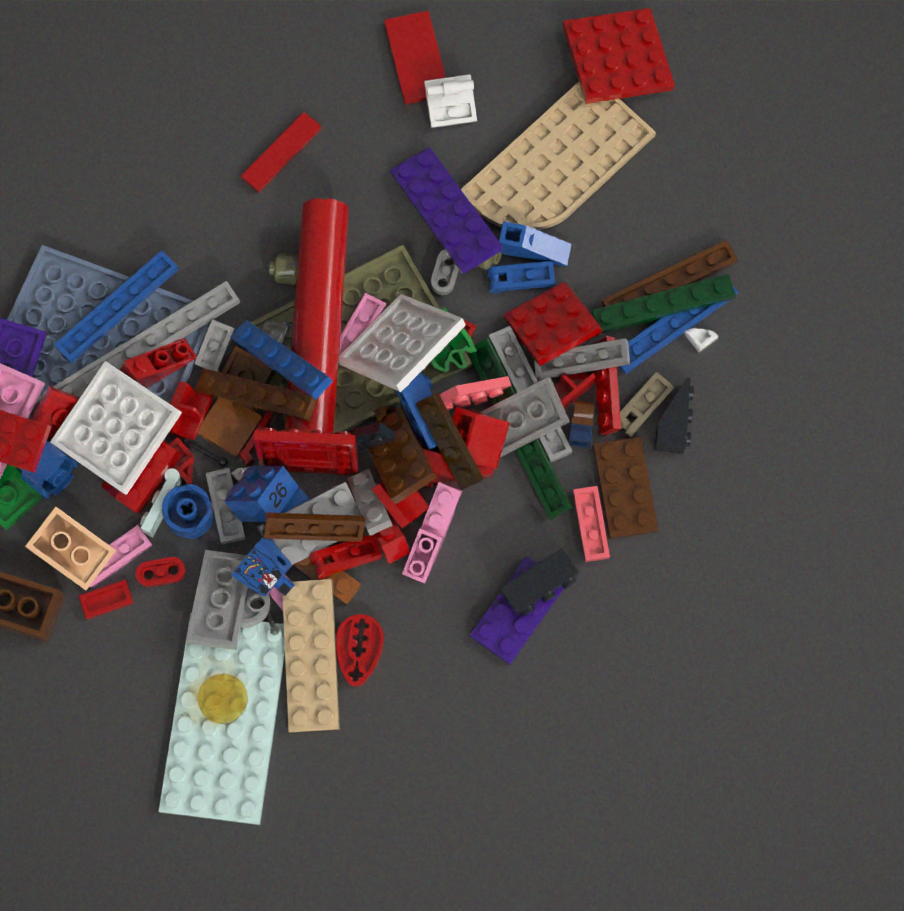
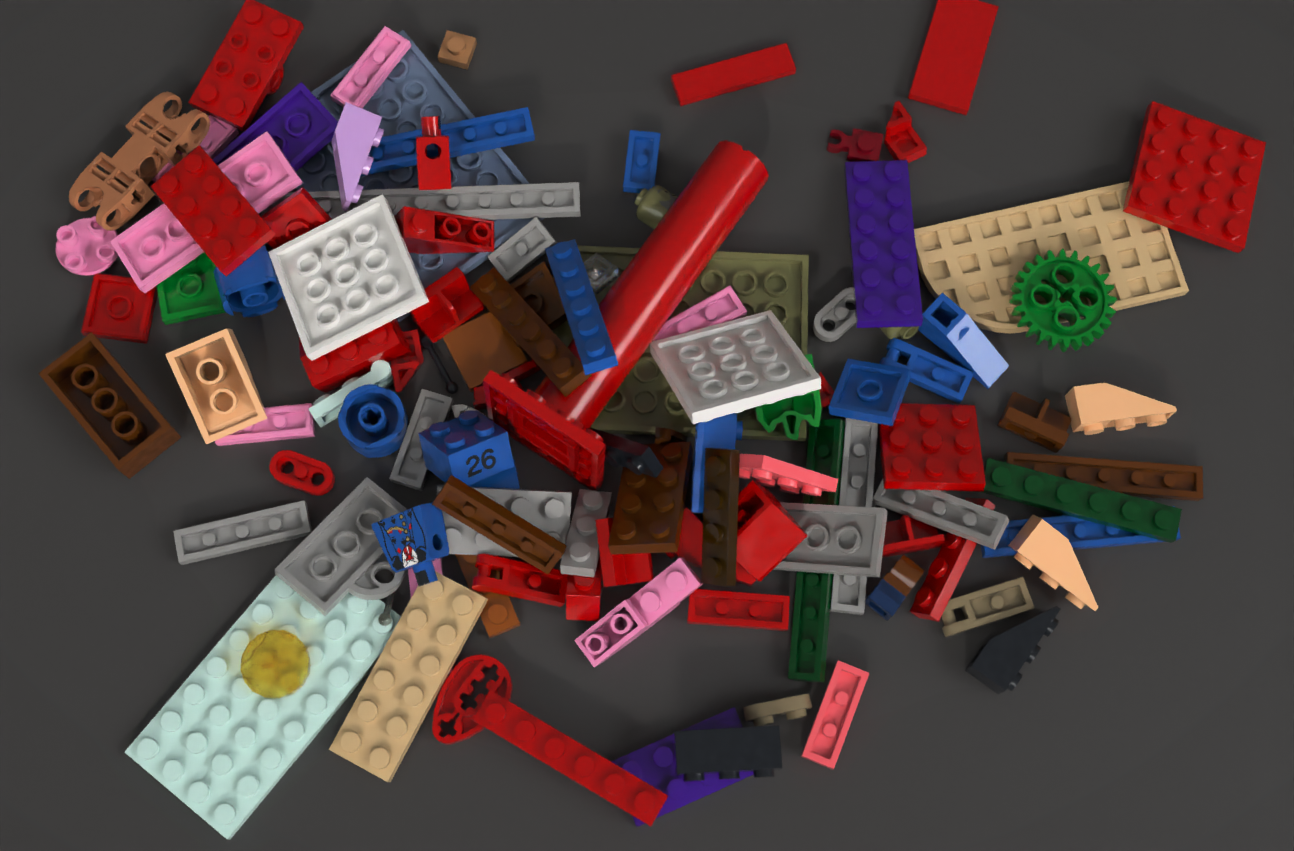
camera: 30 degrees right, 0 degrees up
(38, 284) = (371, 69): none -> bright pink tile
(63, 341) = (351, 145): none -> lavender slope
(85, 238) = (457, 49): none -> medium nougat plate
(106, 599) = (223, 468): red tile -> none
(130, 325) = (433, 172): none -> red torso
(146, 632) = (242, 532): none -> light grey plate
(256, 244) = (641, 161): none -> blue plate
(393, 154) = (860, 146): none -> dark red plate
(416, 133) = (901, 137): none -> red slope
(444, 645) = (570, 758): none -> red plate
(450, 101) = (963, 121): white plate -> none
(493, 494) = (738, 609): none -> red plate
(494, 310) = (869, 392): none -> blue plate
(561, 534) = (763, 713): none -> dark tan plate
(586, 164) = (1081, 282): none -> green gear
(608, 270) = (1035, 422): none -> reddish brown panel
(625, 488) = (903, 695): reddish brown plate -> none
(647, 234) = (1106, 406): none -> light nougat slope
(666, 347) = (1053, 555): none -> light nougat slope
(700, 338) = (1101, 566): white tile -> none

